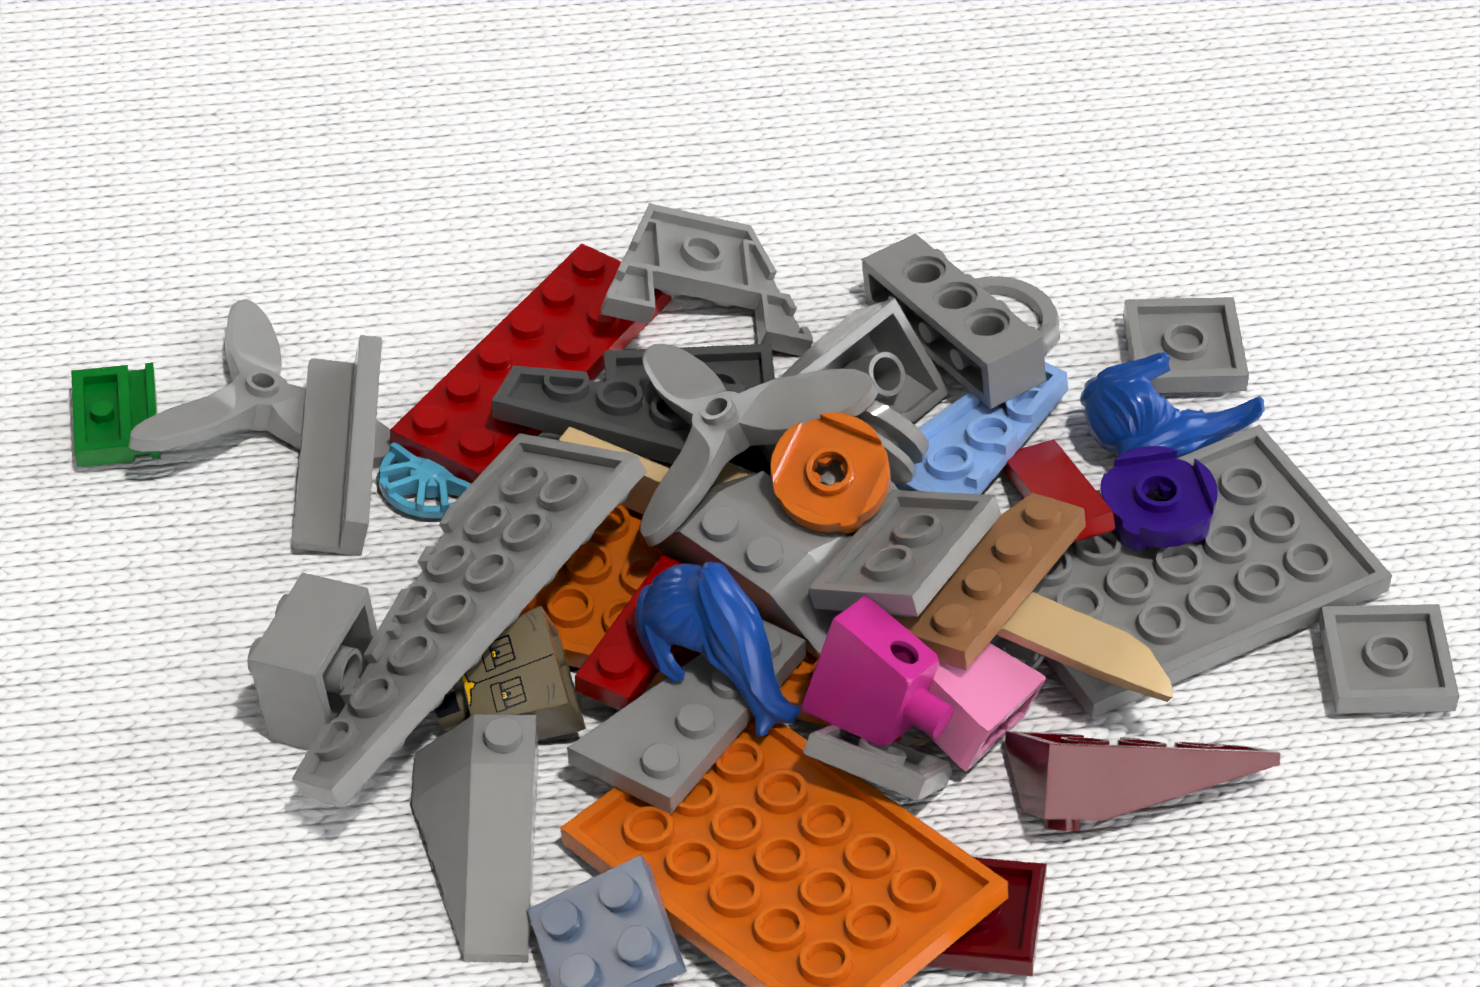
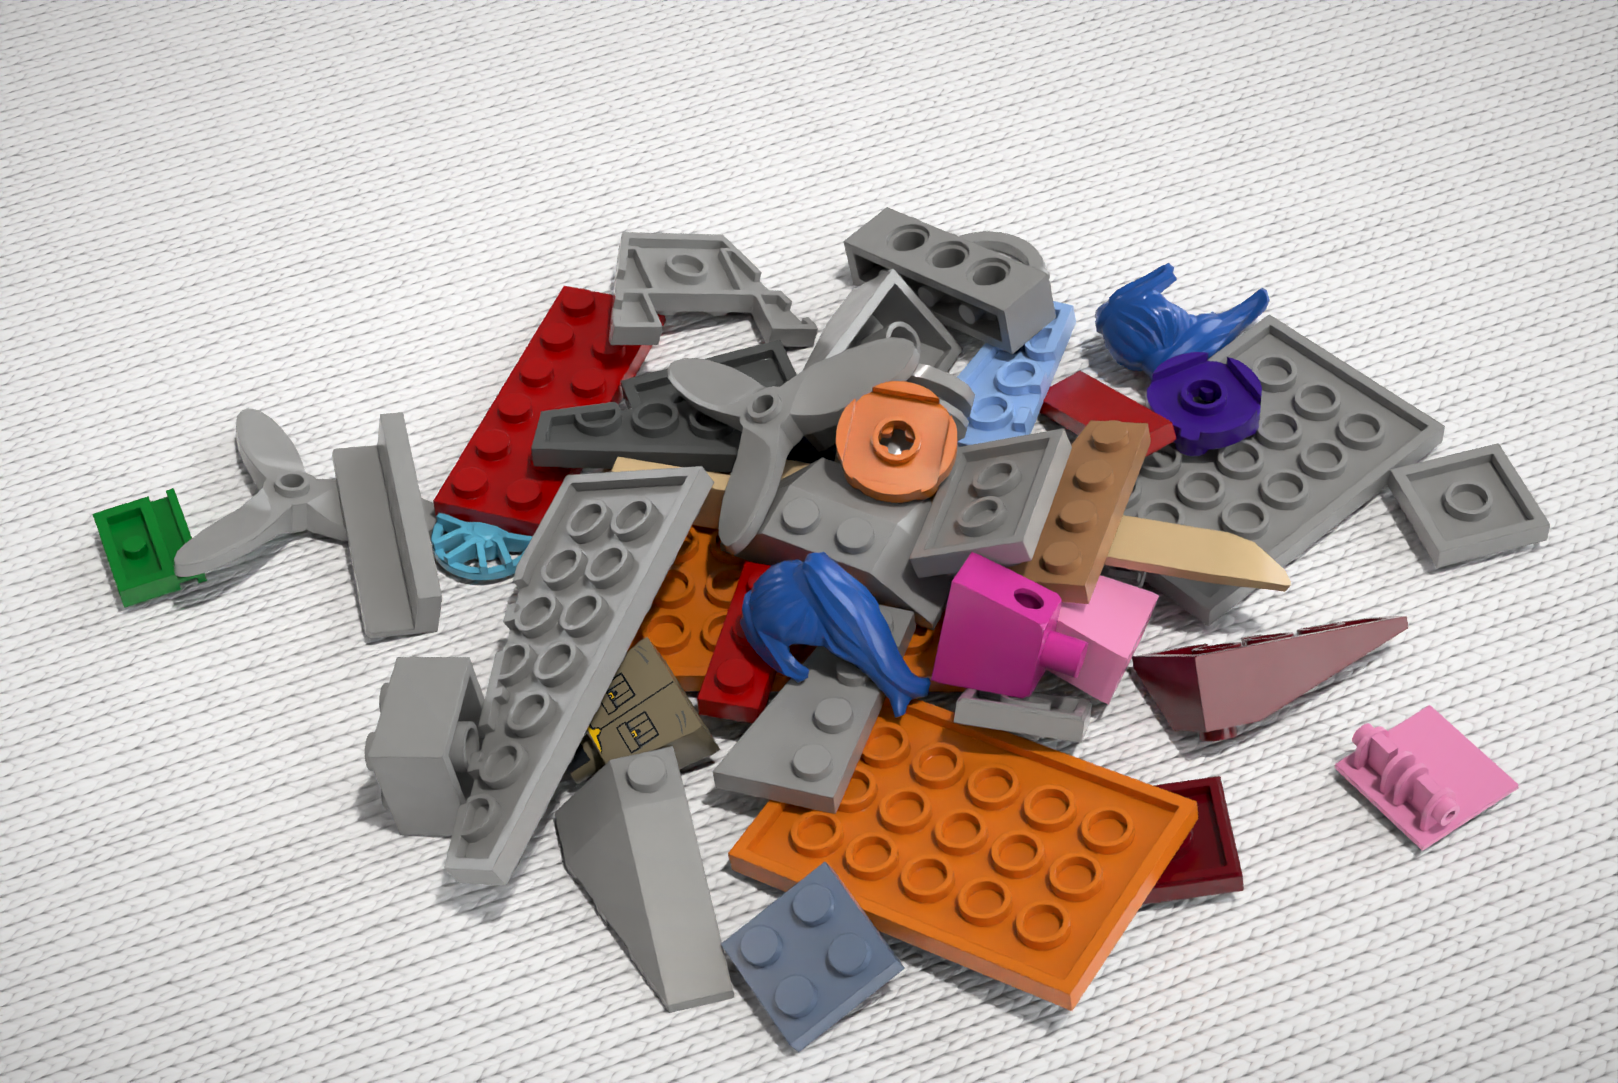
camera: 10 degrees left, 0 degrees up
(1198, 337) = (1177, 237): light grey plate -> none
(1247, 909) = (1424, 775): none -> bright pink hinge

